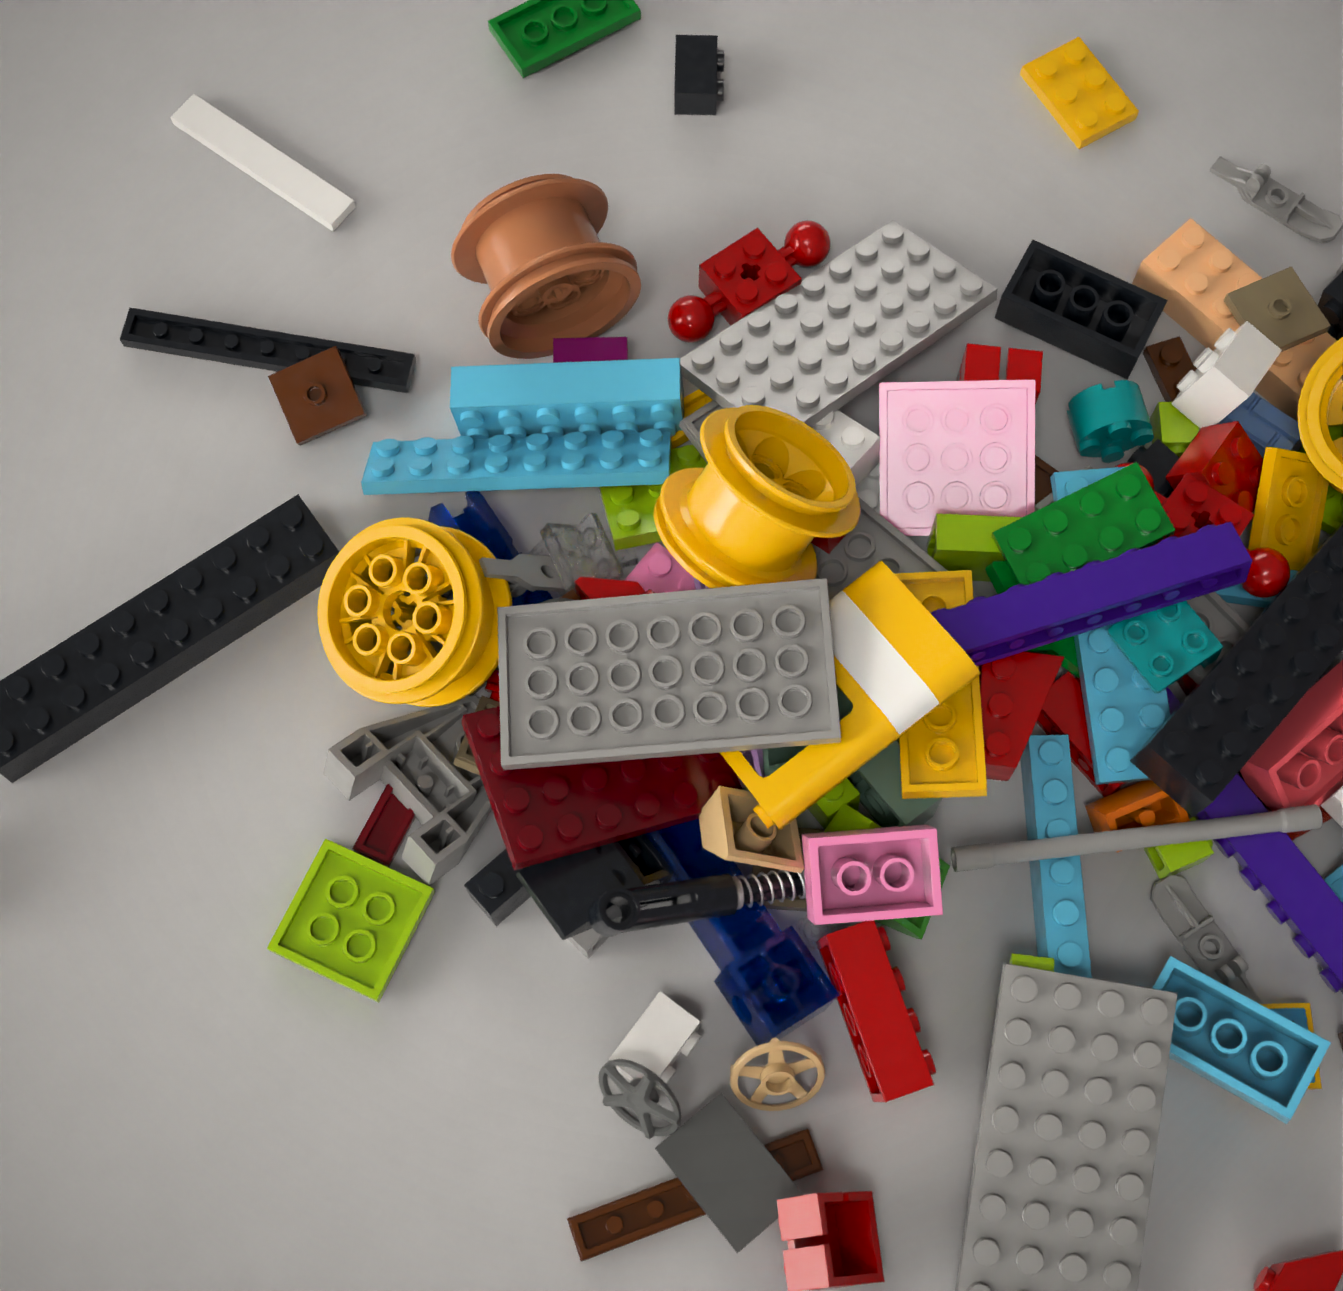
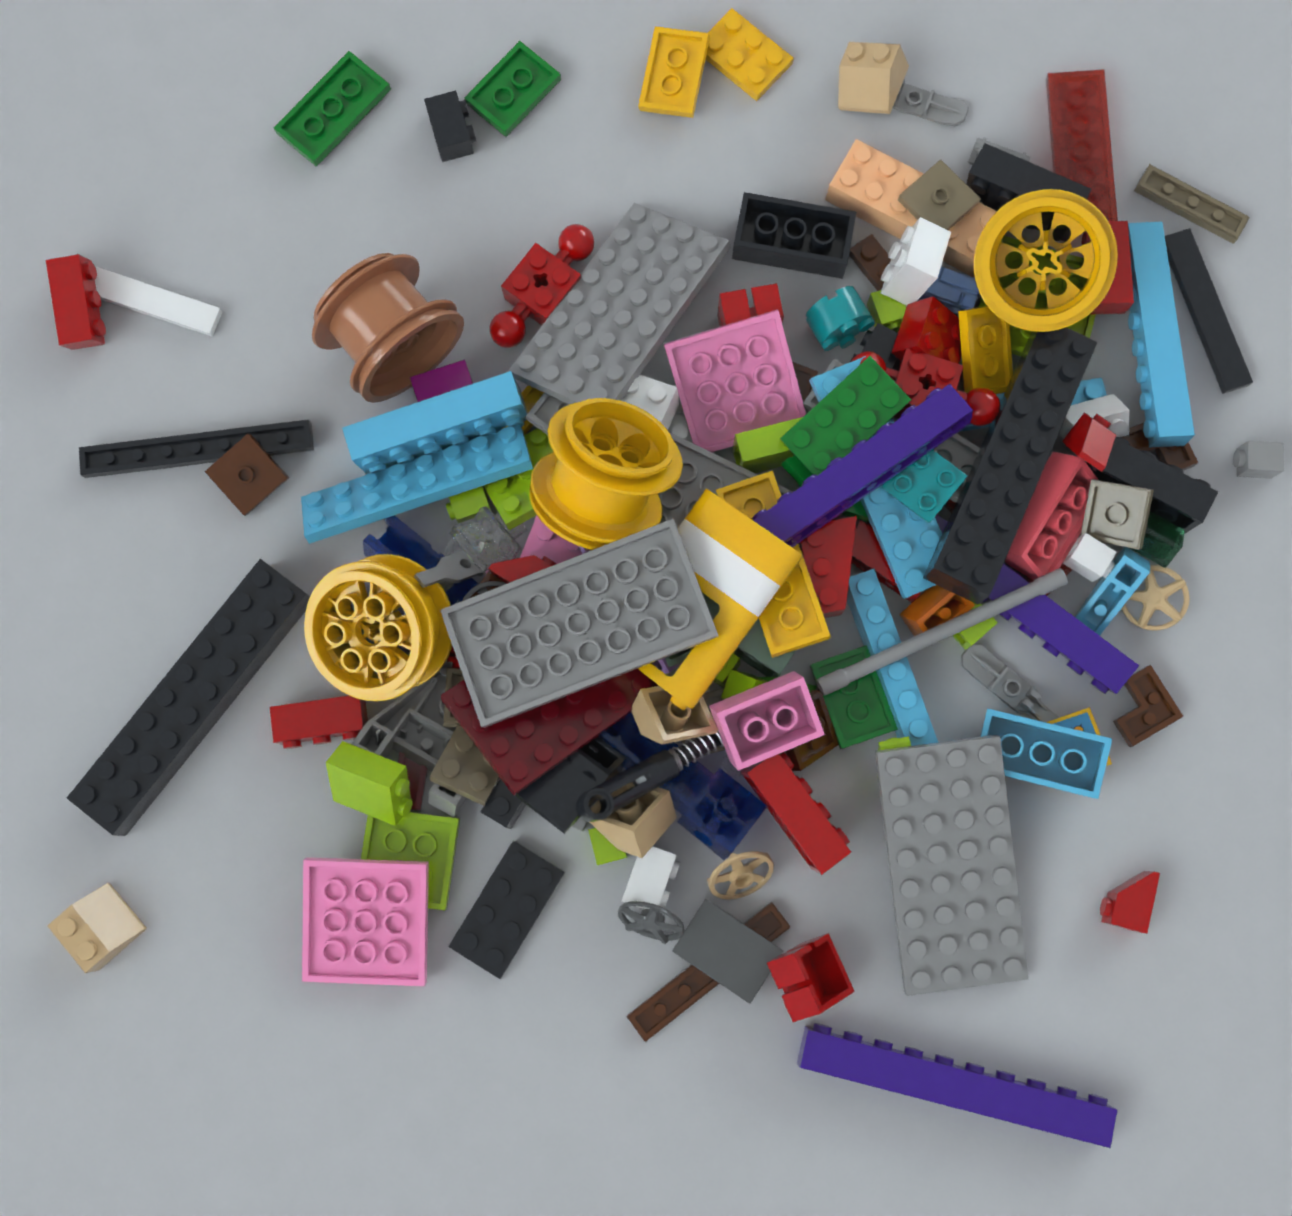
camera: 15 degrees left, 10 degrees up
(188, 145) = (75, 302): none -> red brick
(270, 981) = (365, 921): none -> bright pink plate
(298, 711) = (317, 721): none -> red brick
(336, 804) = (369, 783): none -> lime brick
(456, 1027) = (506, 909): none -> black plate
(463, 824) = (465, 769): none -> dark tan plate
(573, 504) = (467, 504): none -> lime brick
(615, 979) = (604, 849): none -> lime brick
(662, 959) = (638, 824): none -> tan slope
(785, 55) = (512, 88): none -> green plate
(926, 934) = (813, 750): none -> reddish brown plate
(986, 87) = (674, 72): none -> yellow plate
(995, 905) = (860, 708): none -> green plate
(1229, 154) = (871, 77): none -> tan slope

